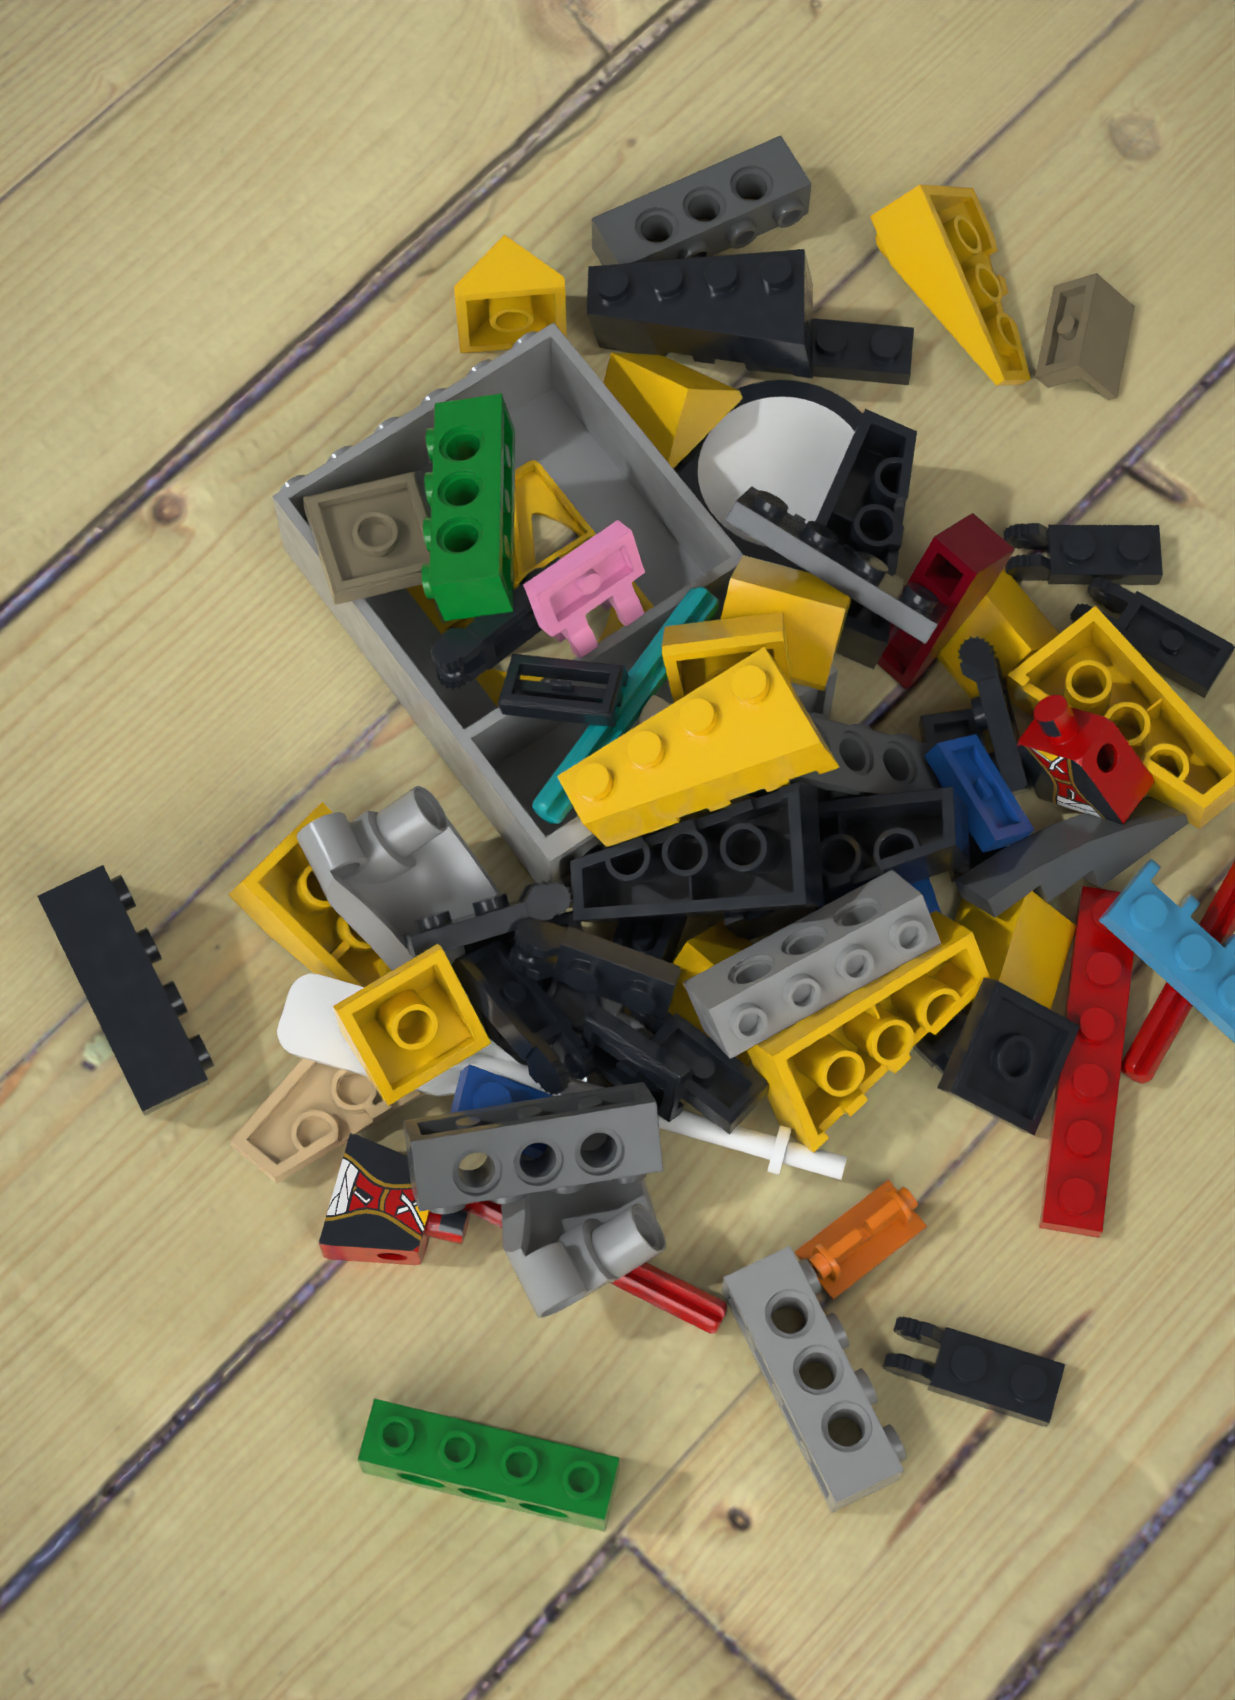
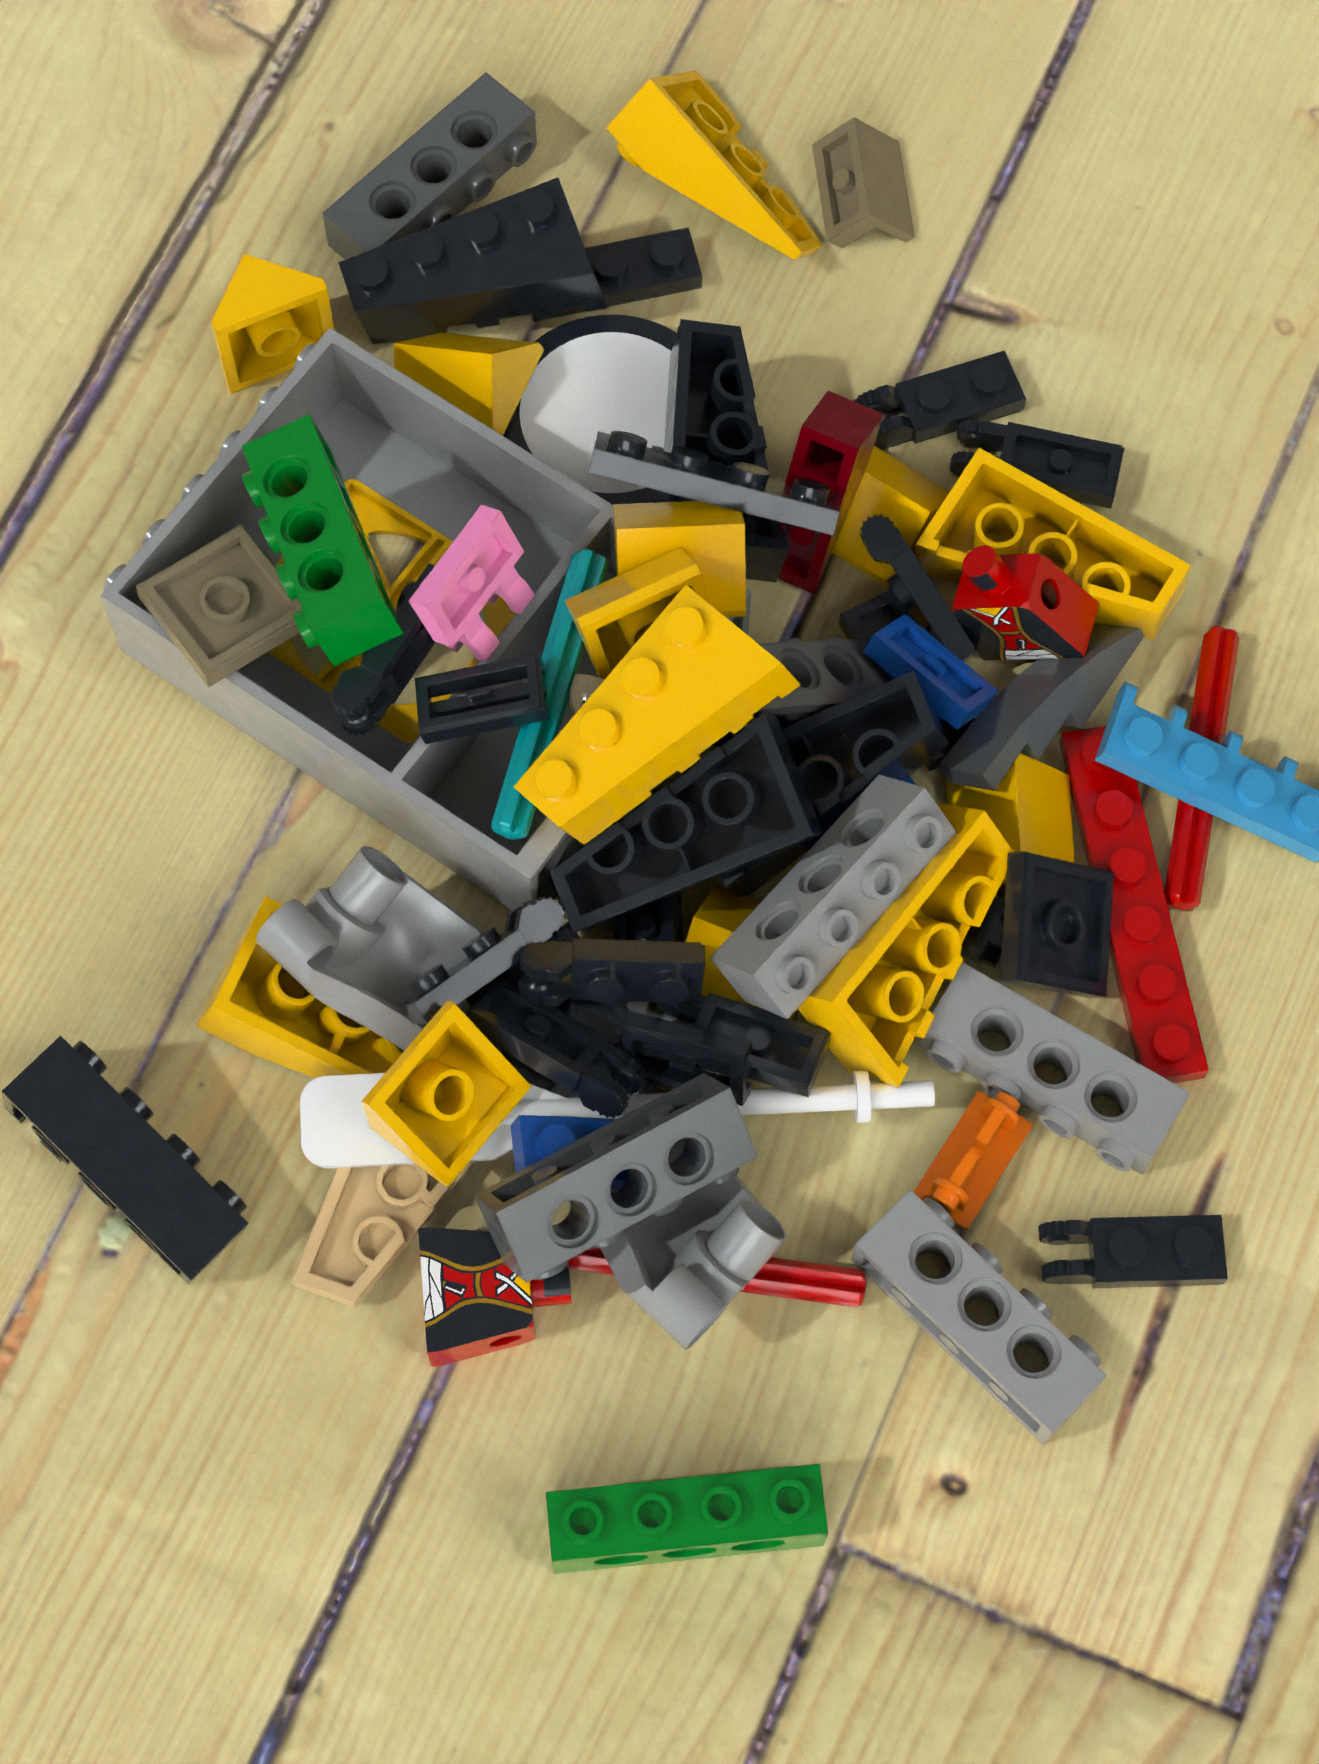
camera: 20 degrees left, 0 degrees up
(913, 1103) = (1035, 1037): none -> light grey brick

